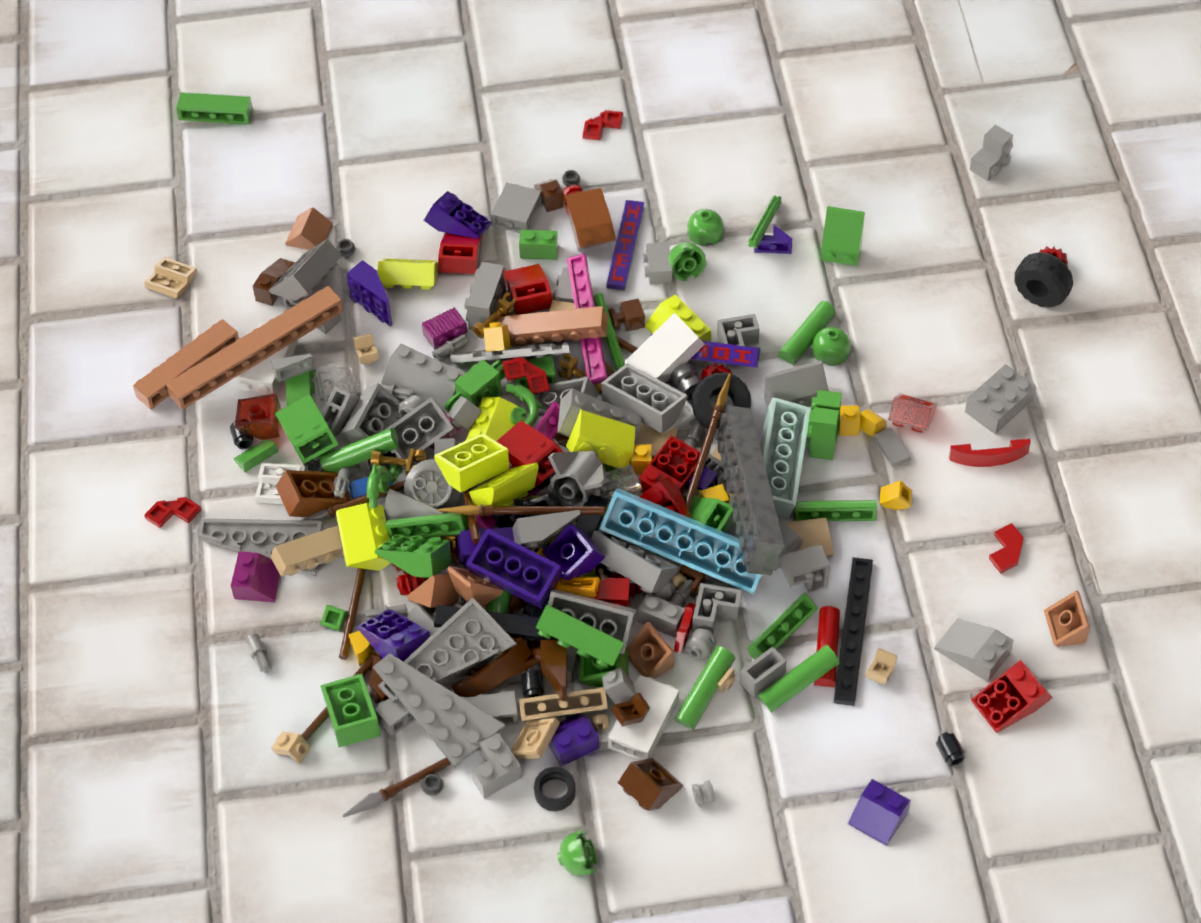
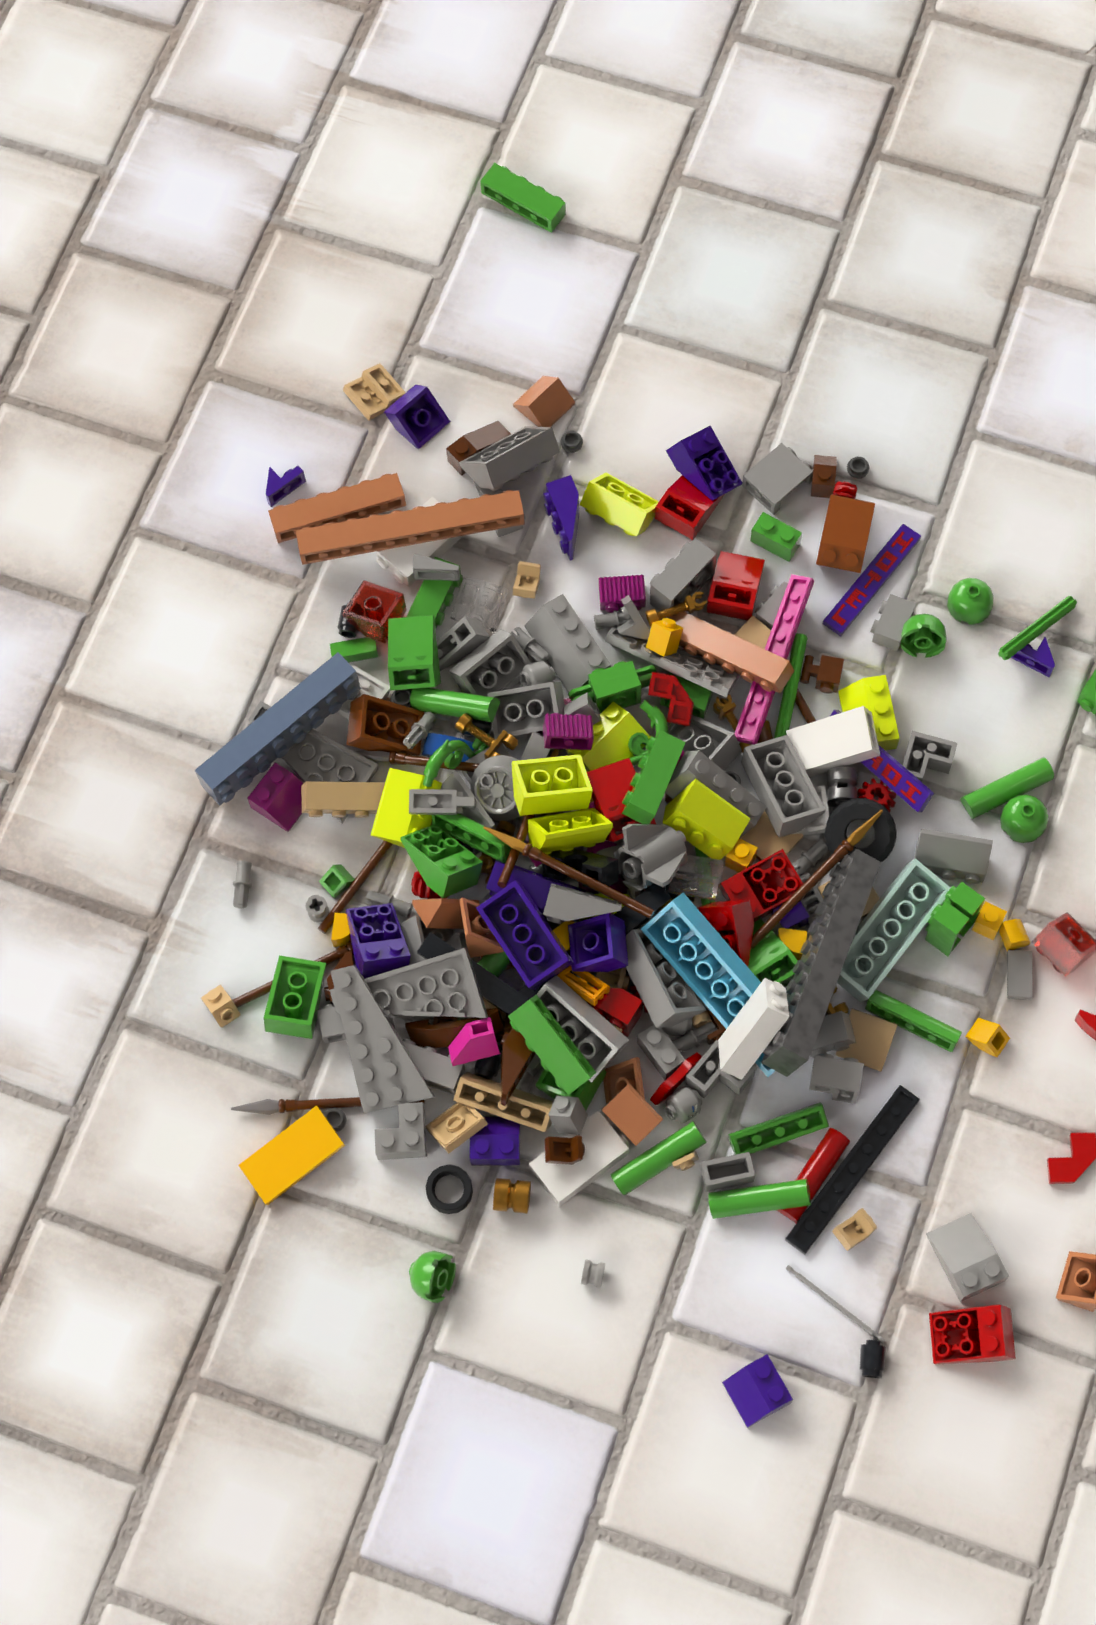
camera: 30 degrees right, 15 degrees up
(132, 368) = (278, 487): none -> dark purple slope
(163, 511) = (233, 670): red tile -> none
(215, 278) = (417, 415): none -> dark purple slope
(229, 526) = (278, 729): none -> sand blue brick
(331, 641) = (313, 901): none -> light grey bush
(390, 514) = (438, 802): none -> light grey hinge
(413, 824) = (291, 1155): none -> yellow tile
(463, 425) = (568, 731): none -> magenta brick
(470, 341) = (636, 626): none -> light grey slope
(516, 668) = (474, 1042): none -> dark pink slope
(547, 422) = (653, 778): none -> bright green brick
(600, 721) = (536, 1138): tan hinge -> none
(605, 769) = (511, 1195): none -> pearl gold wheel
(606, 119) = (939, 407): red tile -> none
(649, 783) = (546, 1234): reddish brown slope -> none
(667, 664) = (632, 1114): none -> nougat slope
(727, 551) = (753, 1028): none -> white brick
(890, 726) = (835, 1304): none -> light grey piece

